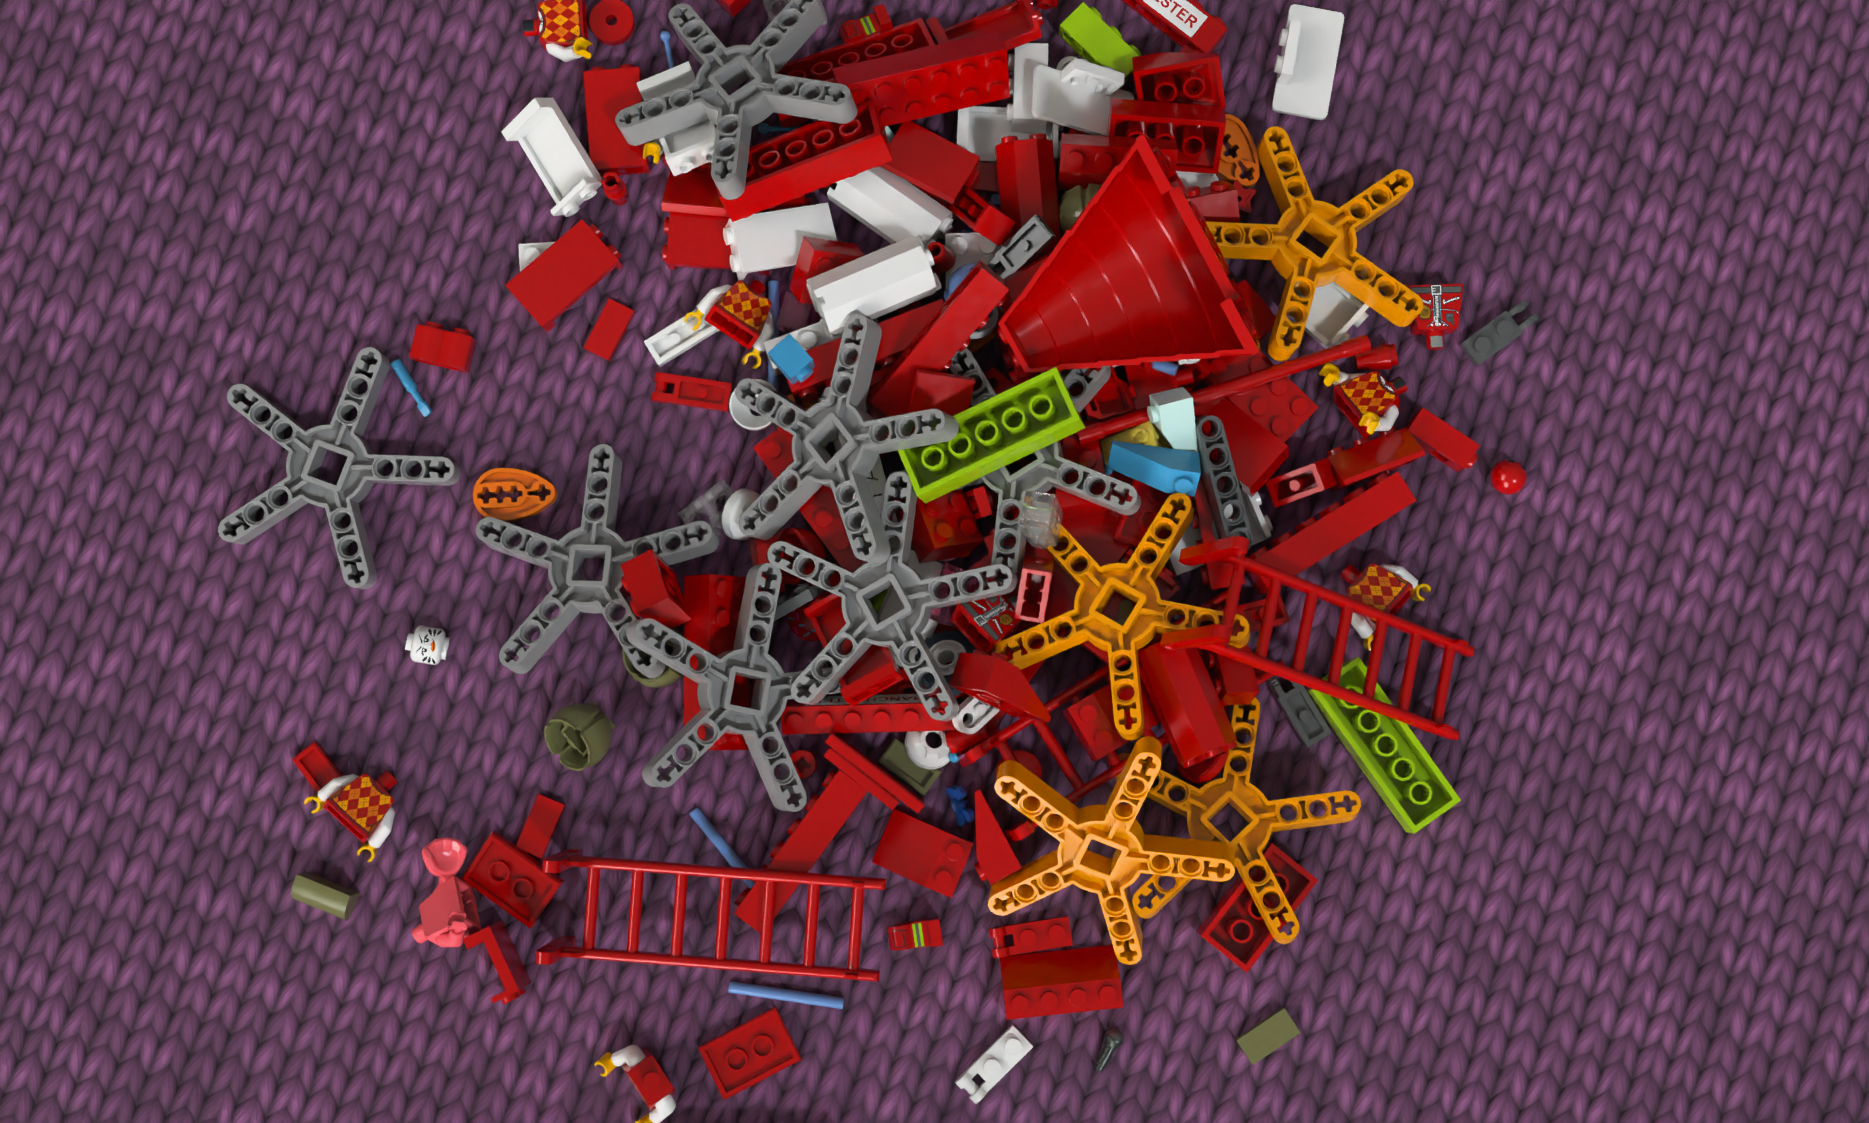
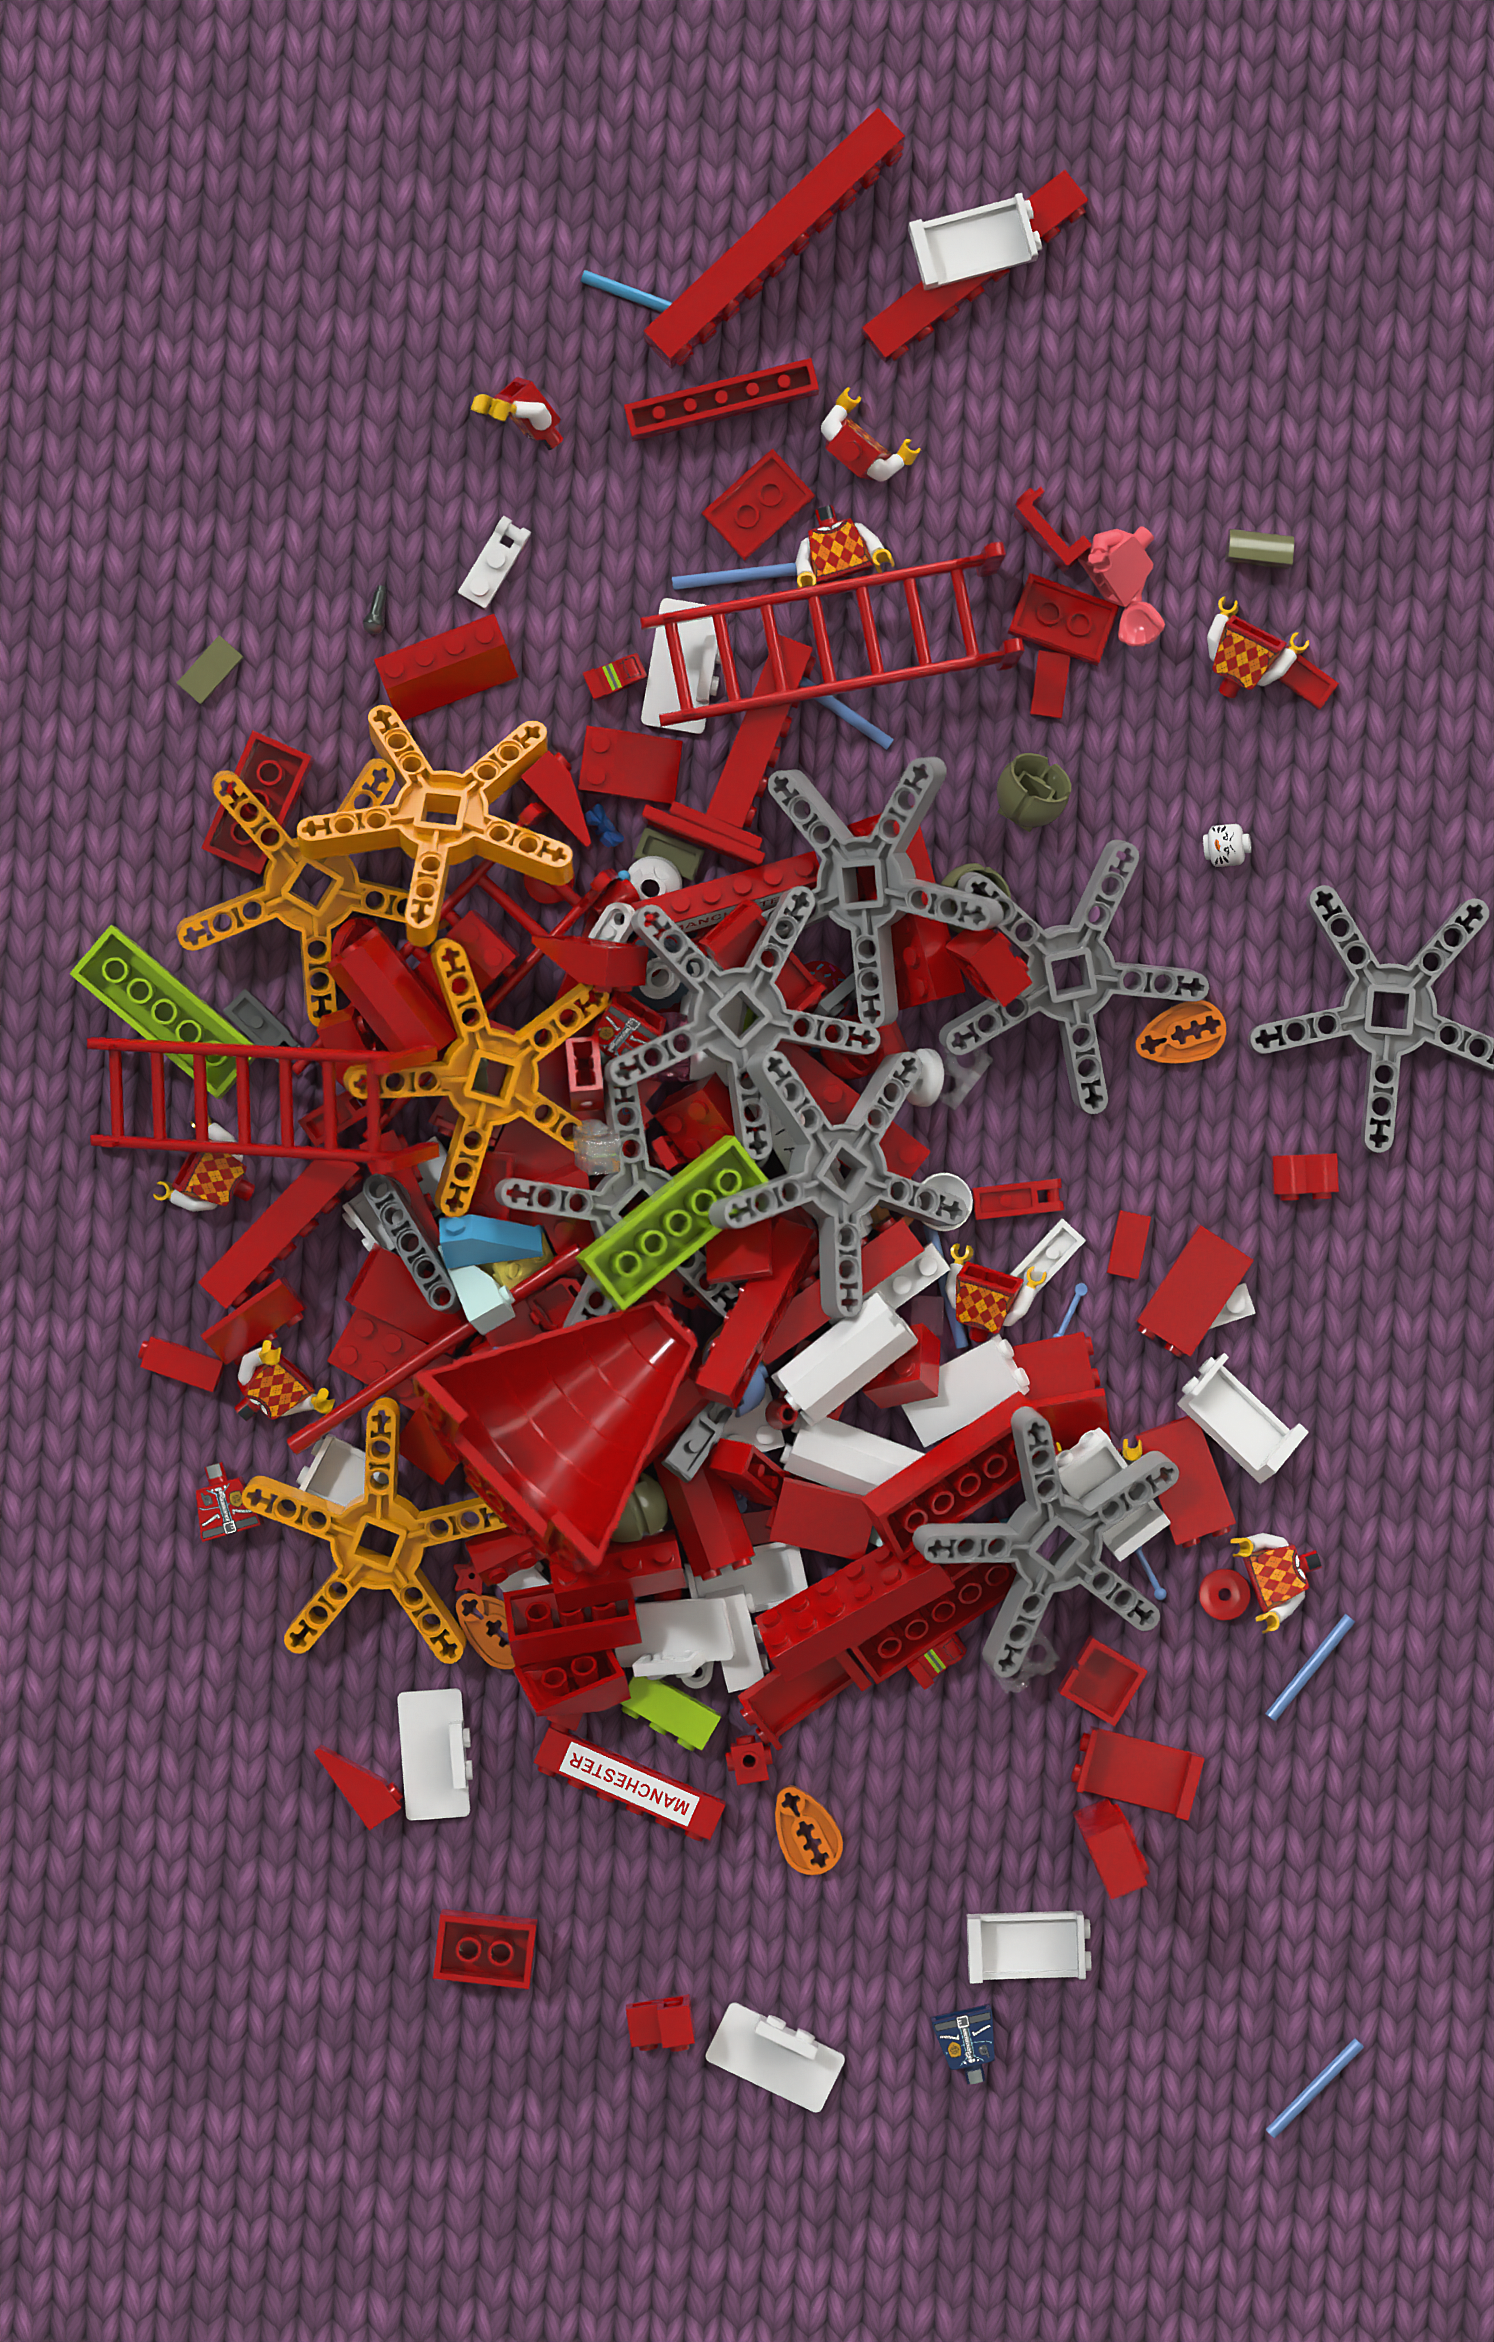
camera: 165 degrees right, 5 degrees up
(410, 386) = (1329, 1123): dark azure piece -> none
(614, 188) = (1157, 1394): red pin -> none
(660, 303) = (1080, 1290): none -> medium blue hinge
(690, 993) = (837, 550): none -> torso
(792, 360) = (909, 1251): dark azure brick -> none
(804, 763) = (782, 828): red wheel -> none
(834, 934) = (699, 655): none -> white bracket
(1031, 936) = (489, 707): red plate -> none
(1301, 482) = (324, 1273): red brick -> none
(1375, 48) = (365, 1790): none -> red slope
(1378, 358) = (273, 1437): red cone -> none
(1496, 335) = (148, 1499): dark grey hinge -> none
(1508, 476) = (98, 1343): red piece -> none

